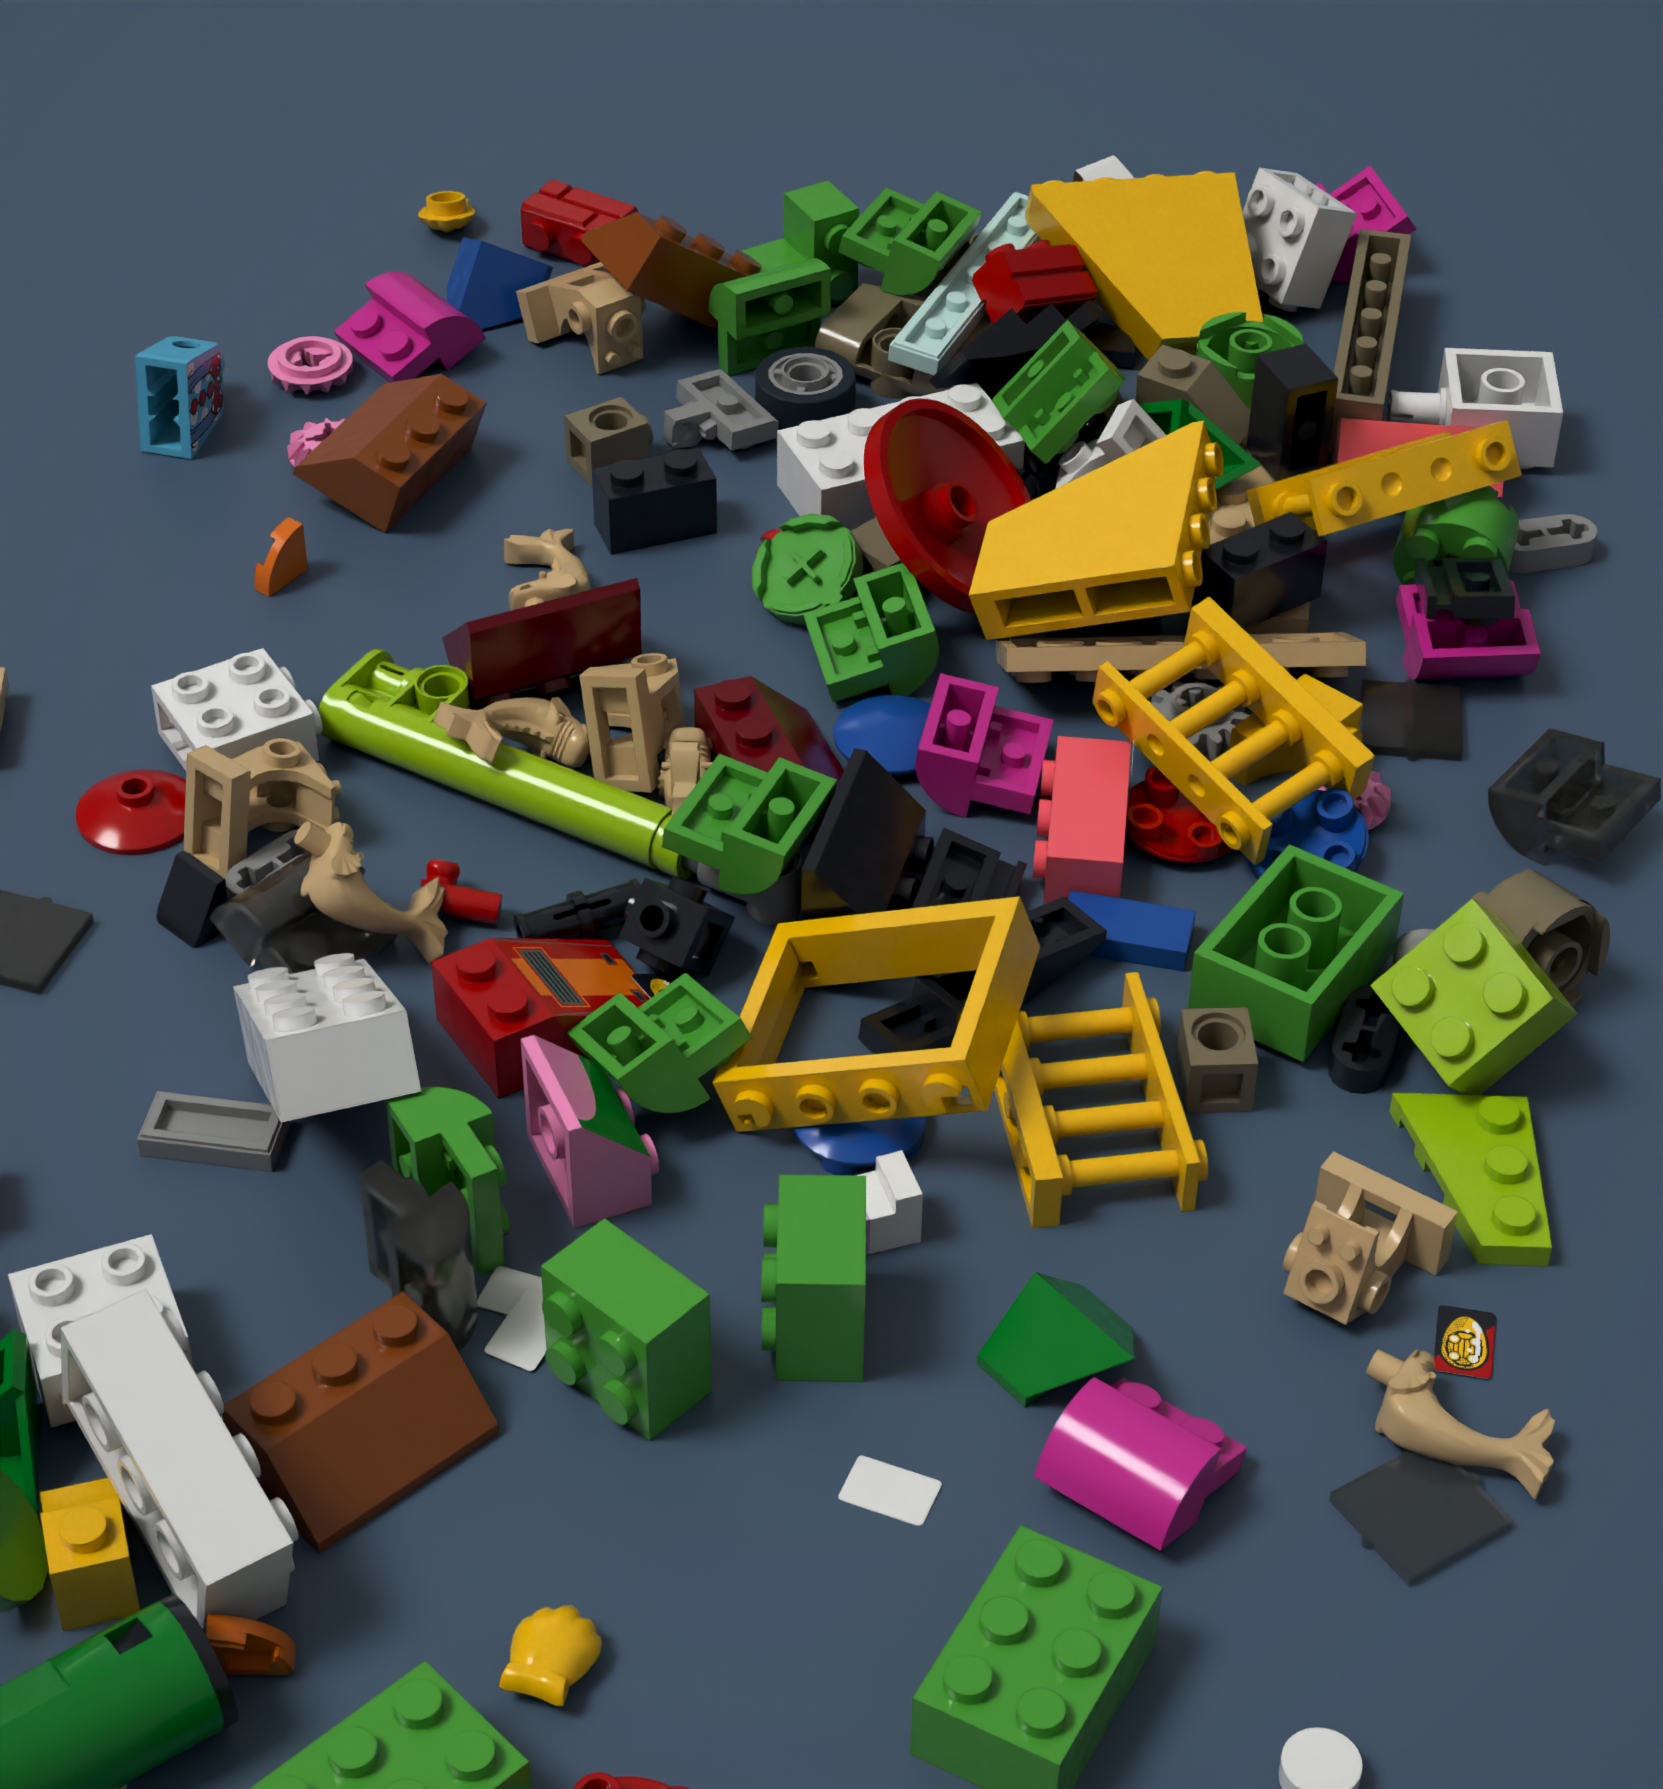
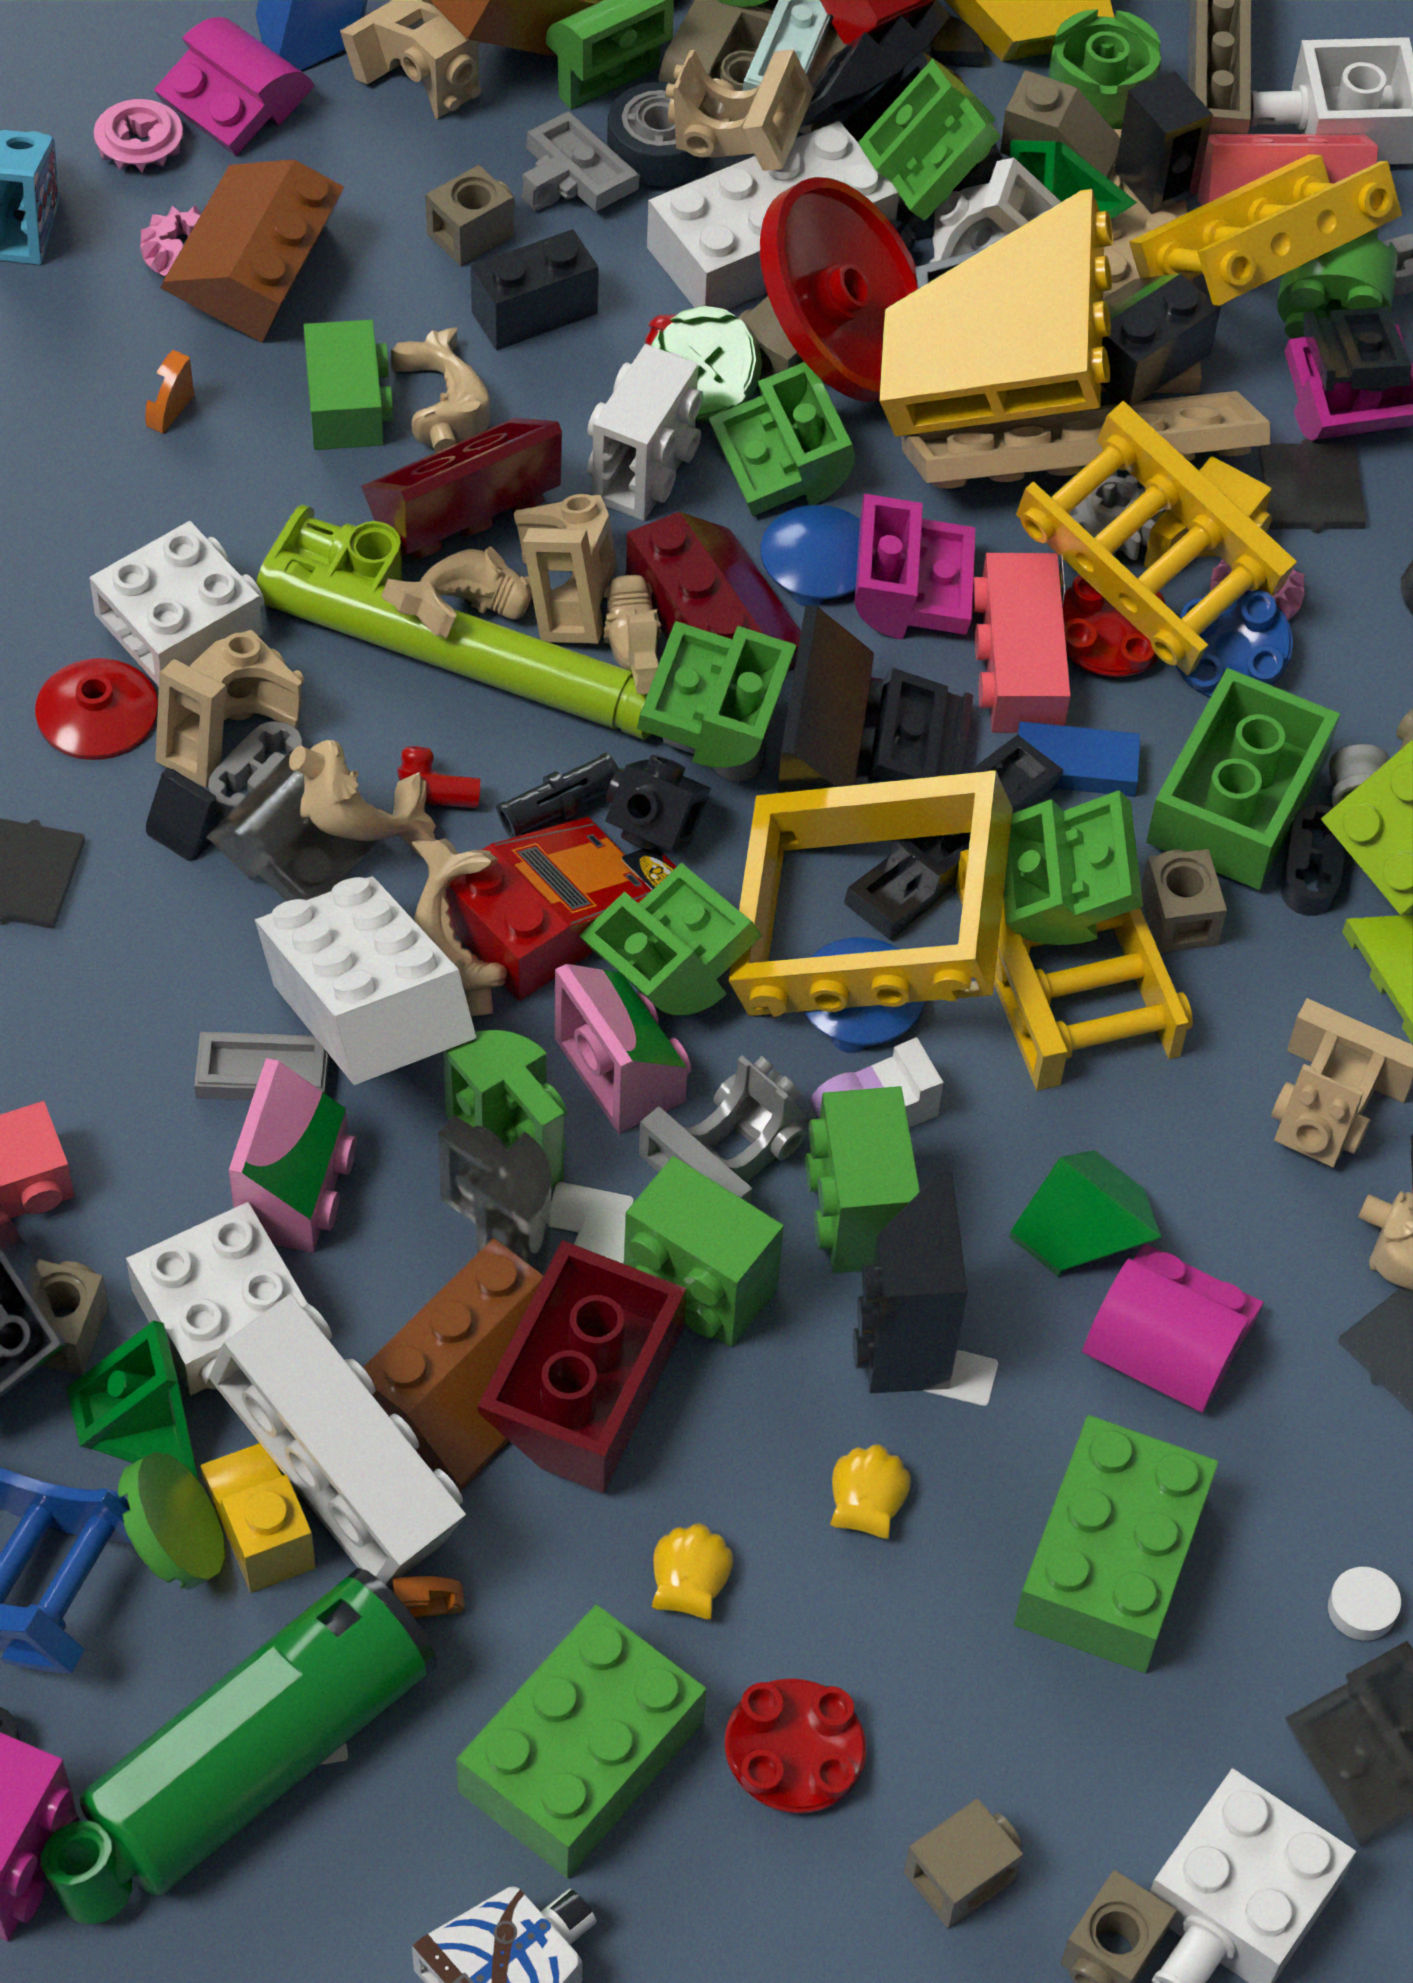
camera: 10 degrees left, 15 degrees up
(209, 1202) = (291, 1157): none -> bright pink slope
(433, 1050) = (433, 918): none -> tan animal
(452, 563) = (344, 384): none -> bright green brick
(475, 1428) = (584, 1364): none -> dark red slope
(713, 1203) = (748, 1102): none -> light grey tile
(732, 610) = (644, 431): none -> white brick
(768, 1592) = (869, 1490): none -> yellow animal
(839, 1383) = (913, 1296): none -> black slope
(889, 372) = (722, 122): none -> tan tile
(1091, 1008) = (1071, 869): none -> bright green brick

